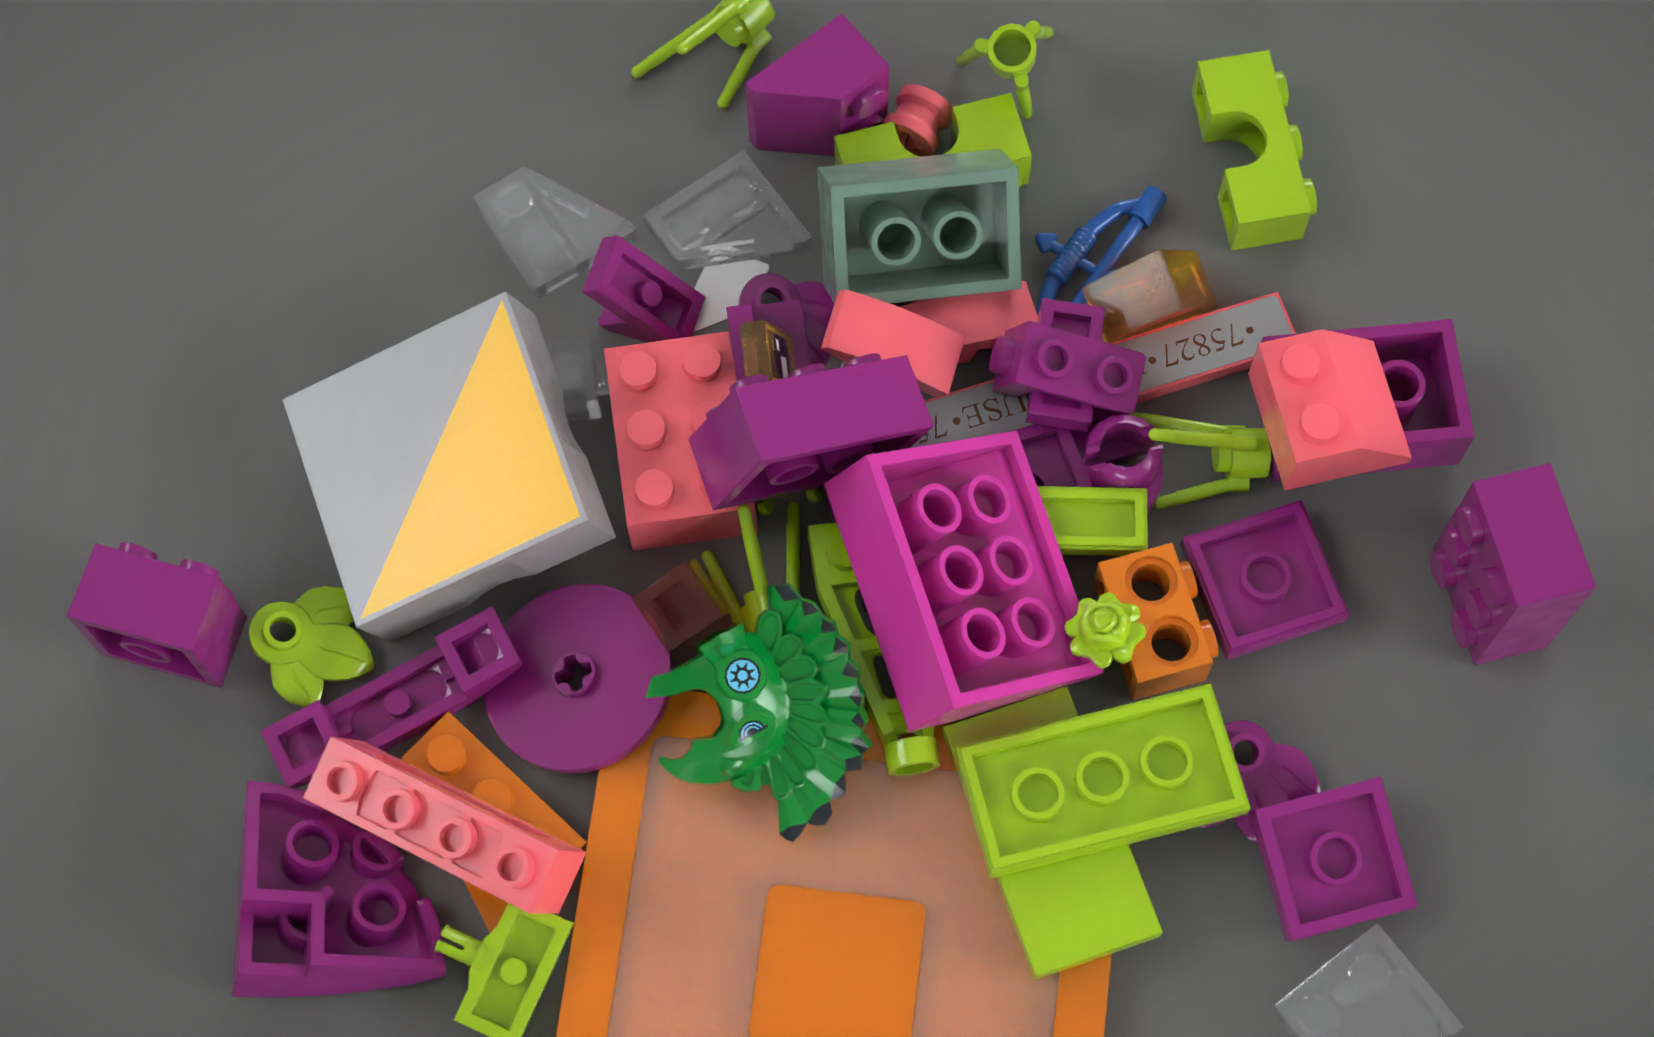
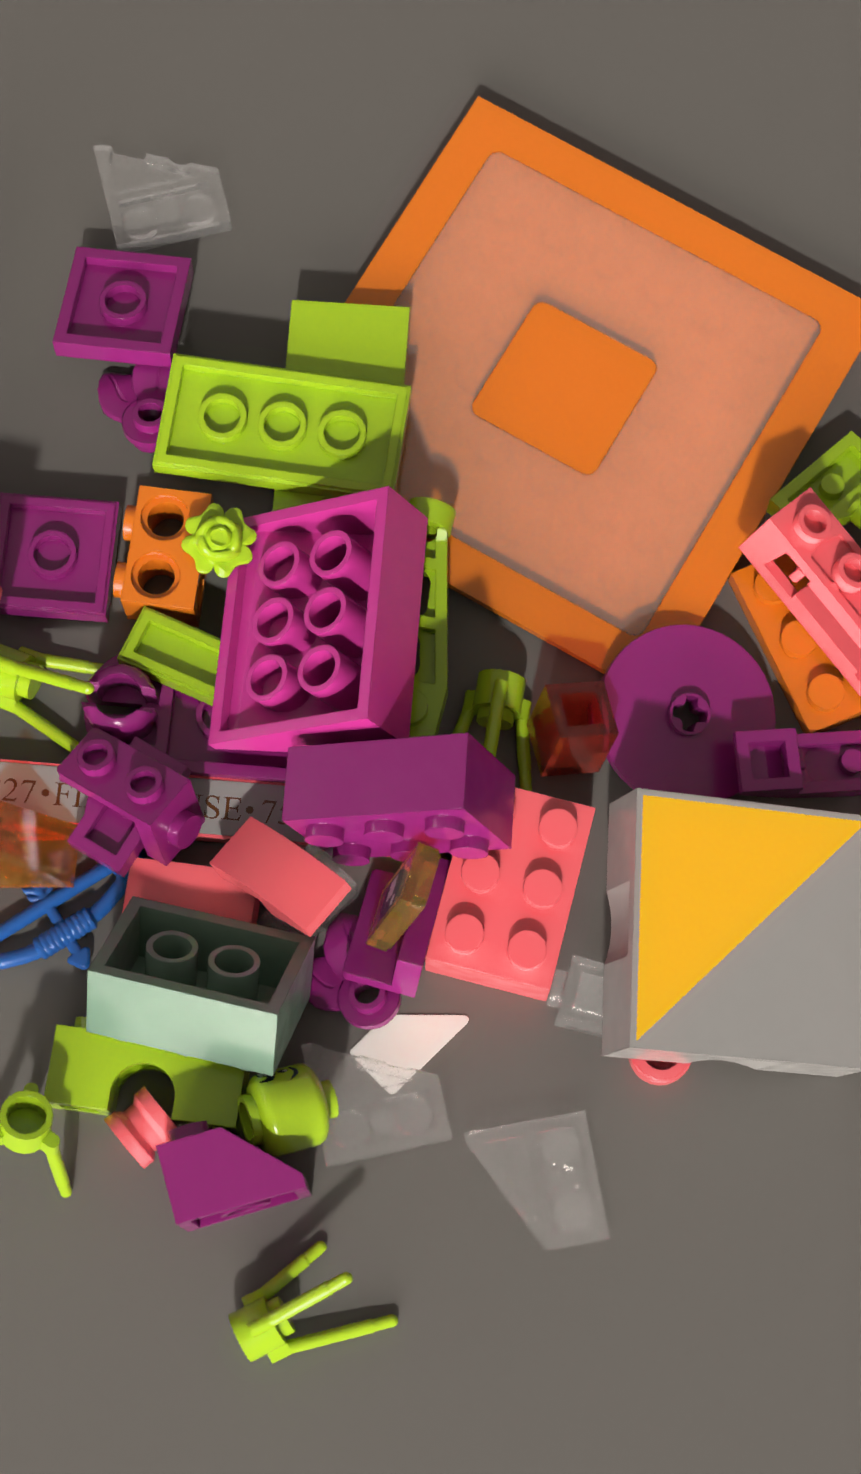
camera: 160 degrees left, 5 degrees up
(640, 294) = (486, 1050): magenta slope -> none
(784, 707) = (525, 592): green piece -> none
(789, 162) = (287, 1110): none -> lime head

